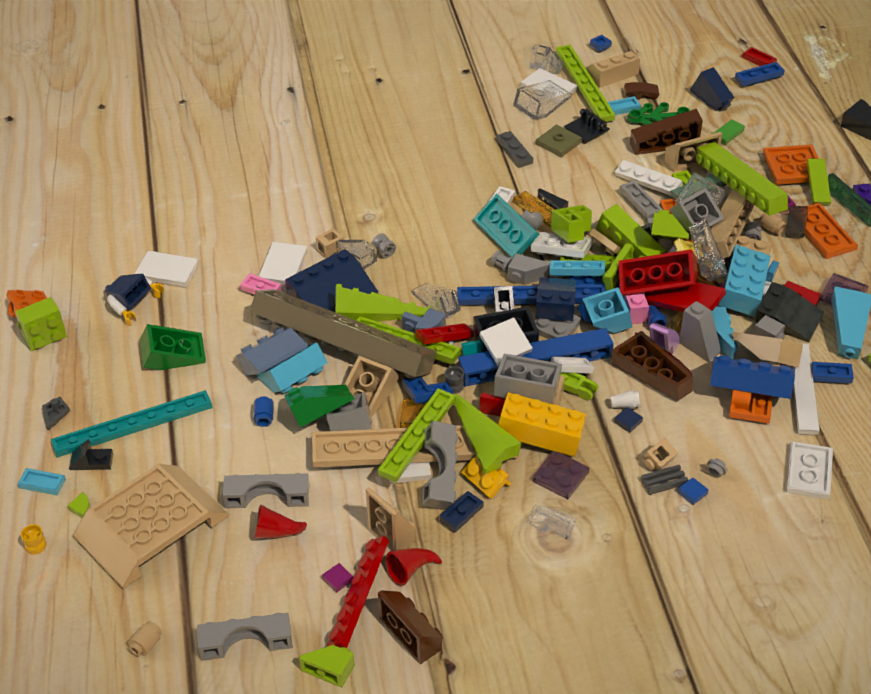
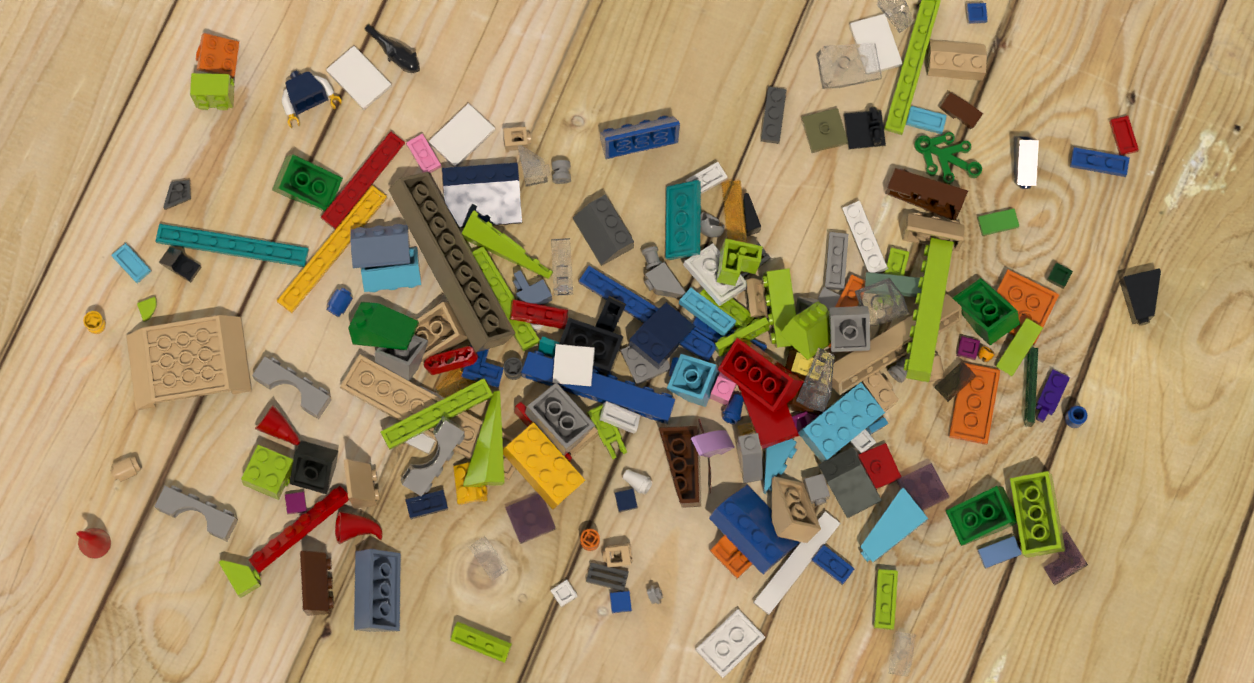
camera: 30 degrees right, 30 degrees up
(187, 238) = (396, 52): none -> black piece
(220, 327) = (362, 180): none -> red tile
(226, 386) = (331, 250): none -> yellow tile
(293, 563) = (268, 472): none -> lime brick
(334, 538) = (313, 467): none -> pearl dark grey slope
(396, 397) = (462, 358): none -> red beam
(428, 193) = (640, 137): none -> blue slope
(449, 261) = (603, 230): none -> dark grey slope
(472, 601) = (377, 591): none -> sand blue slope
(603, 586) = (481, 642): none -> lime plate
(626, 458) = (590, 543): none -> orange wheel
(639, 512) = (564, 593): none -> white tile
(782, 168) = (987, 311): none -> green slope
(799, 198) = (986, 352): none -> light orange hinge
(800, 137) = (1059, 275): none -> dark green plate

